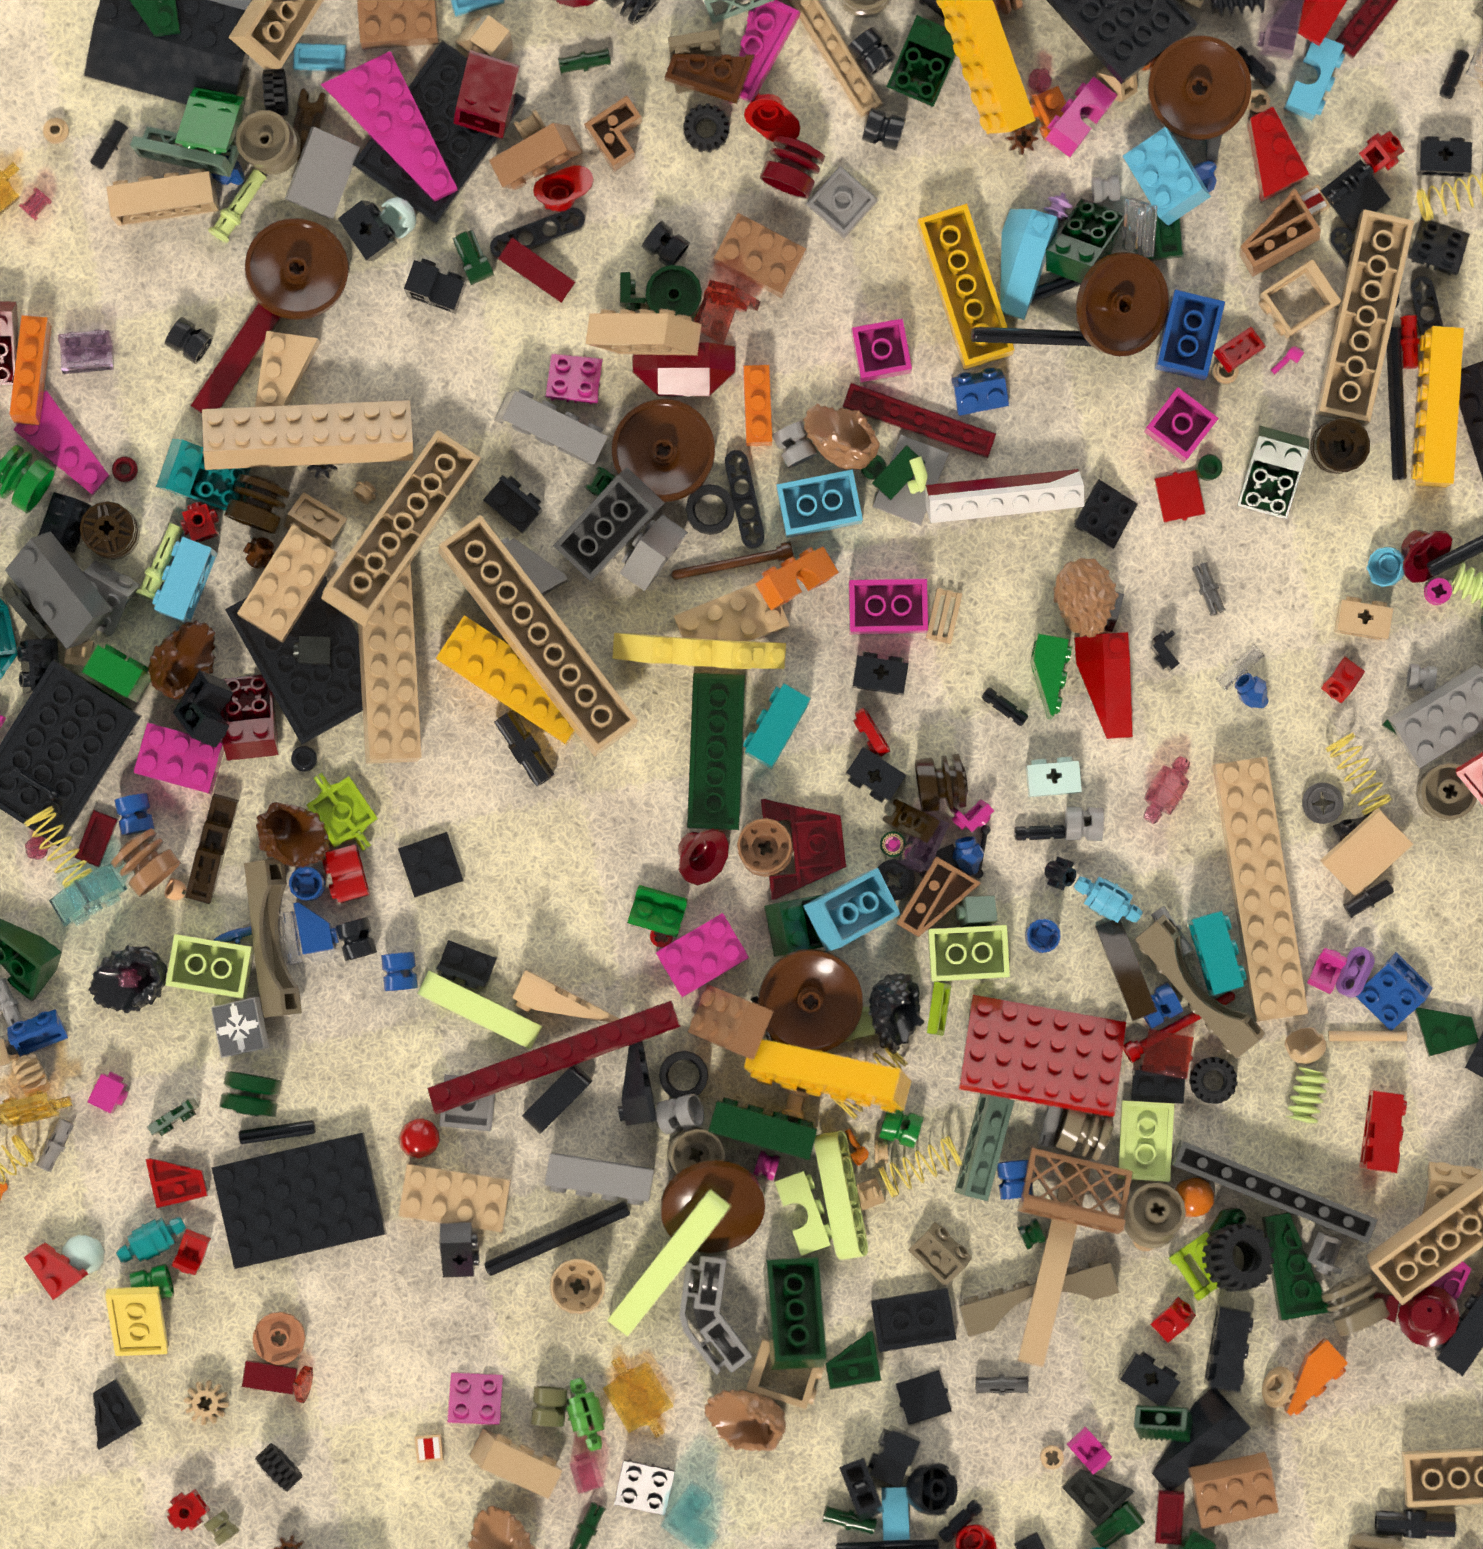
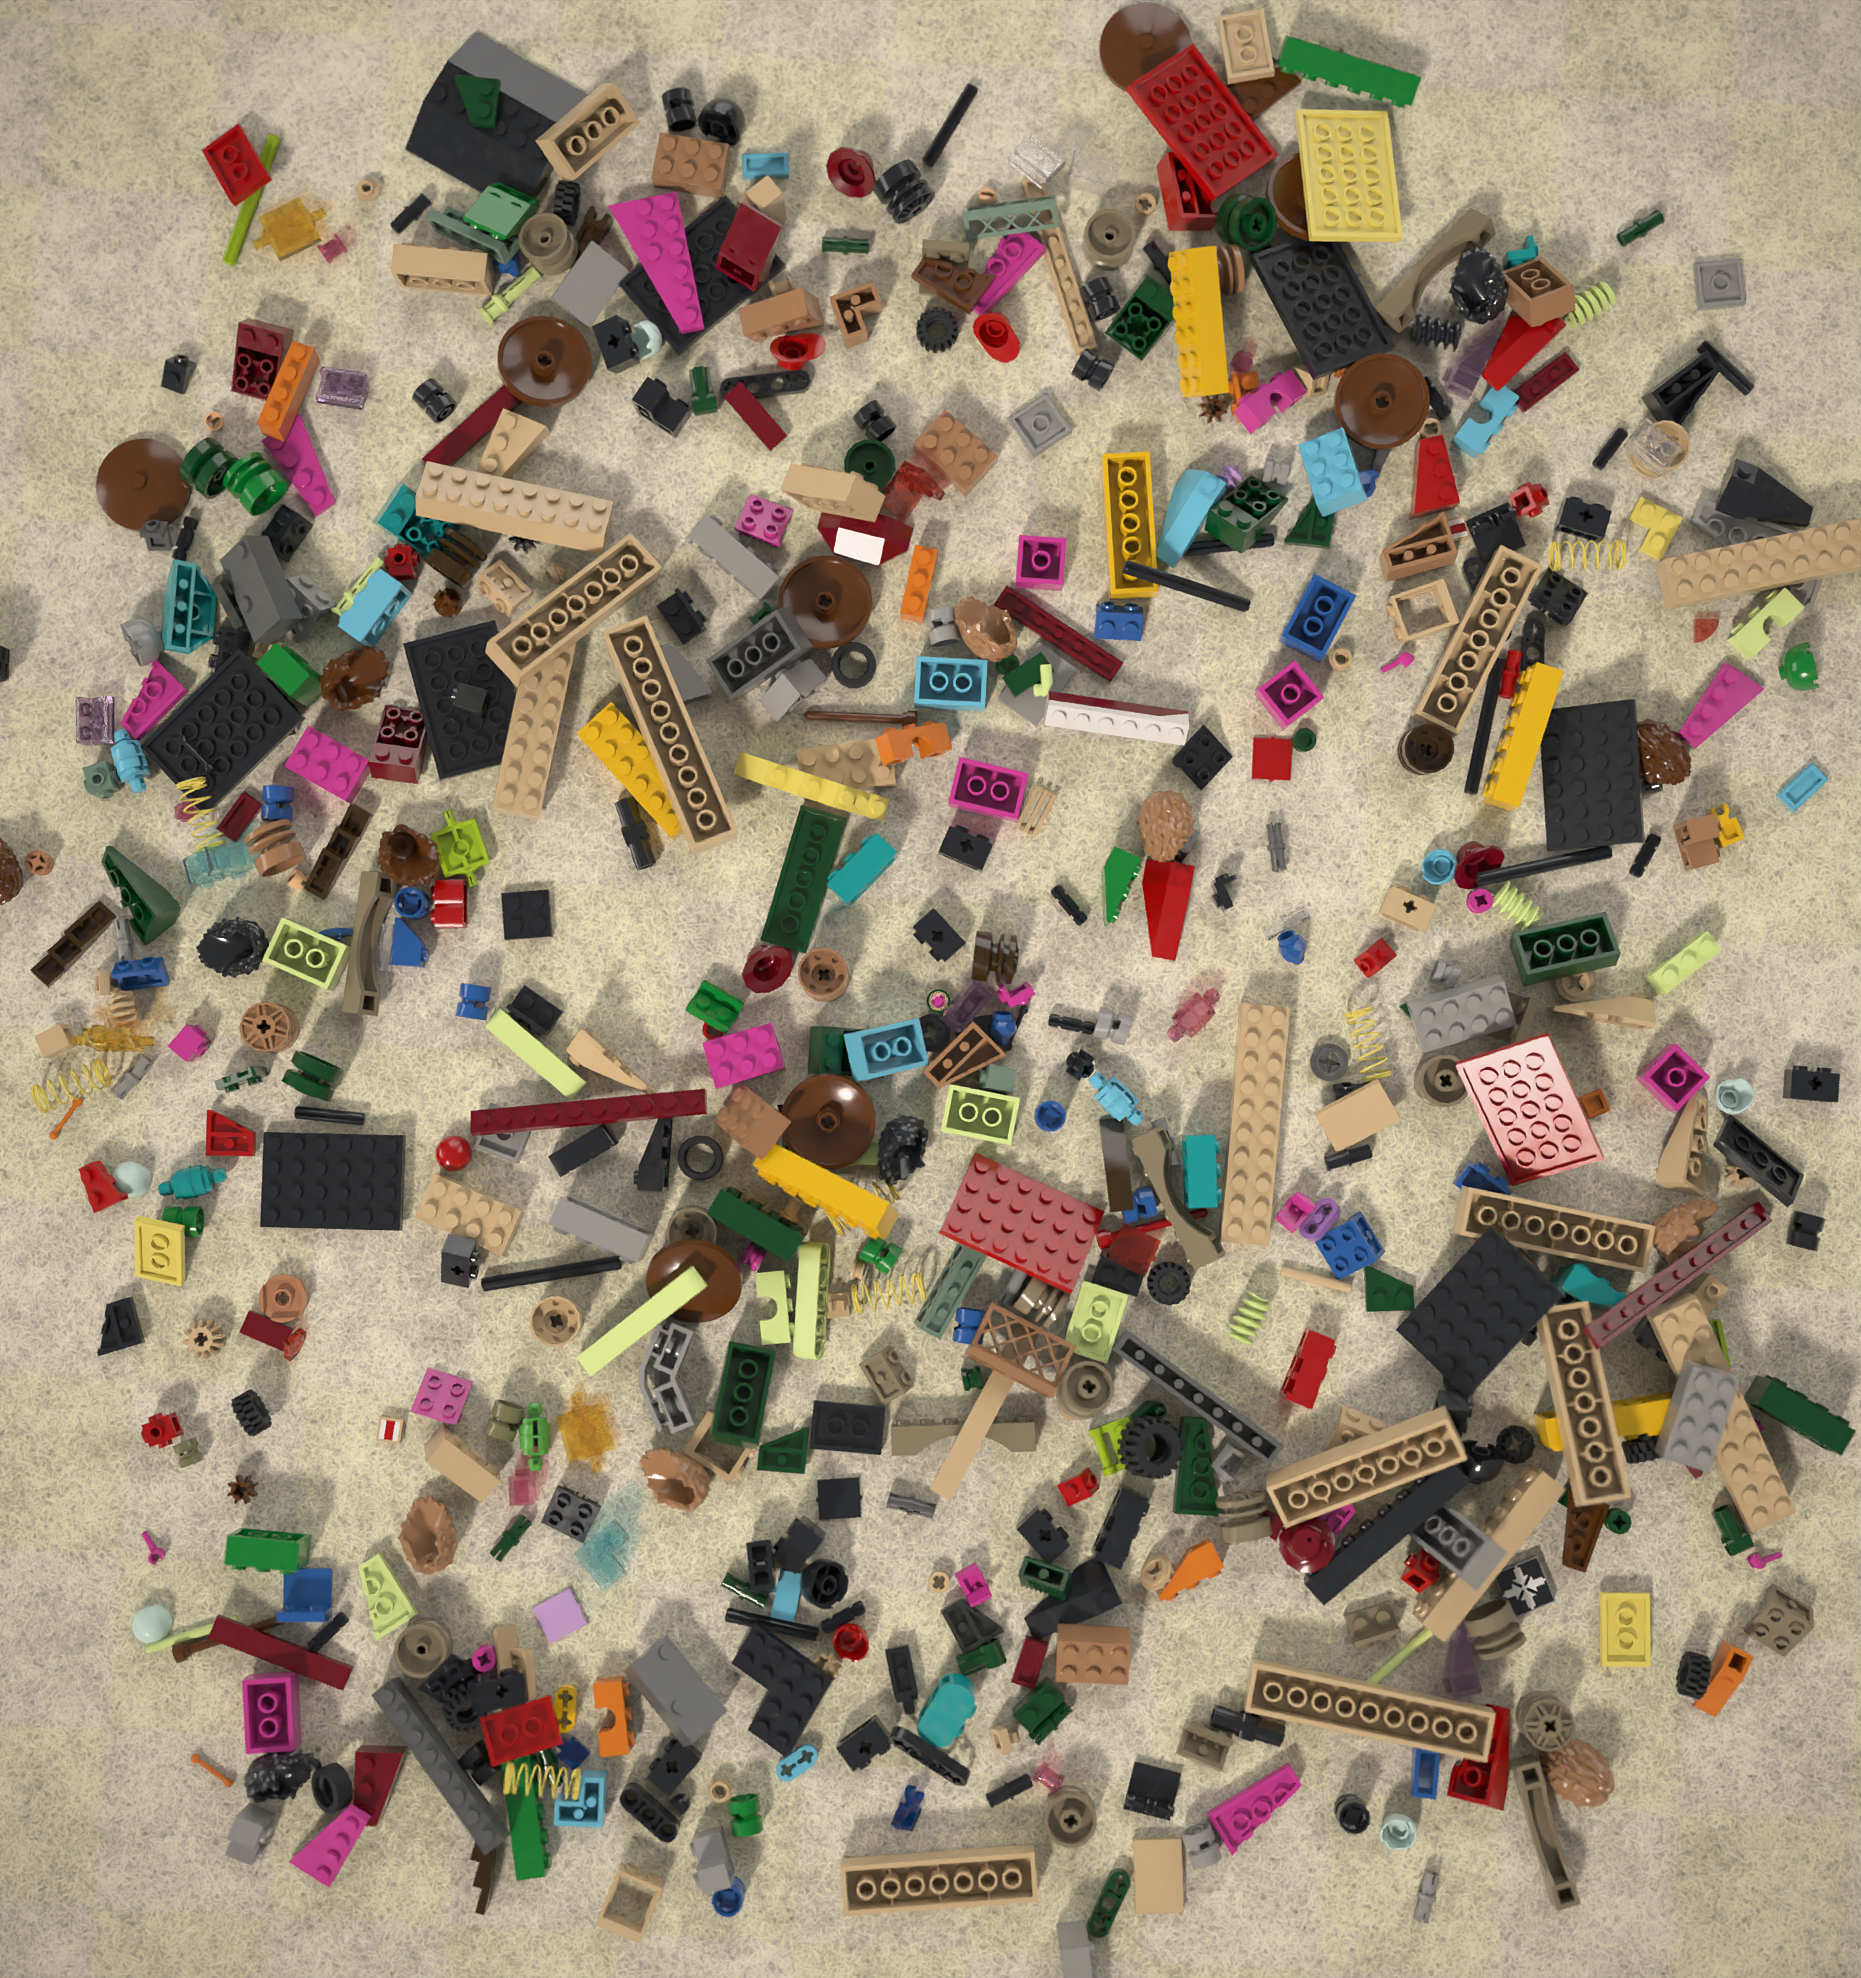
camera: 20 degrees right, 0 degrees up
(116, 469) = (347, 493): dark red plate -> none
(118, 542) = (323, 561): dark brown wheel -> none
(128, 978) = (232, 946): clear pink plate -> none
(191, 1252) = (225, 1202): red bracket -> none
(201, 708) = (358, 724): black brick -> none
(201, 1065) = (283, 1029): none -> medium nougat wheel
(240, 1027) = (320, 1014): tile -> none
(287, 583) = (461, 634): tan brick -> none
(304, 758) = (440, 793): black plate -> none
(319, 57) = (614, 184): medium azure tile -> none
(356, 939) = (443, 963): black wheel -> none
(628, 288) = (831, 452): dark green bracket -> none
(680, 1114) = (687, 1191): light grey wheel -> none
(744, 499) = (886, 664): black beam -> none
(794, 161) = (1003, 381): dark red wheel -> none
(816, 845) = (870, 983): dark red wing -> none
(861, 1153) = (838, 1268): orange hand -> none
(866, 724) = (947, 907): red plate -> none
(912, 821) = (959, 984): dark brown plate -> none
(939, 1008) = (941, 1157): lime tile -> none
(1039, 785) = (1106, 987): light aqua brick -> none
(1122, 304) = (1264, 575): reddish brown dish -> none
(1139, 227) = (1297, 511): clear plate -> none
(1197, 1196) = (1127, 1382): orange hair -> none
(1239, 349) = (1358, 642): red plate -> none
(1273, 472) = (1360, 758): slope -> none
(1309, 1037) = (1251, 1269): tan hair -> none

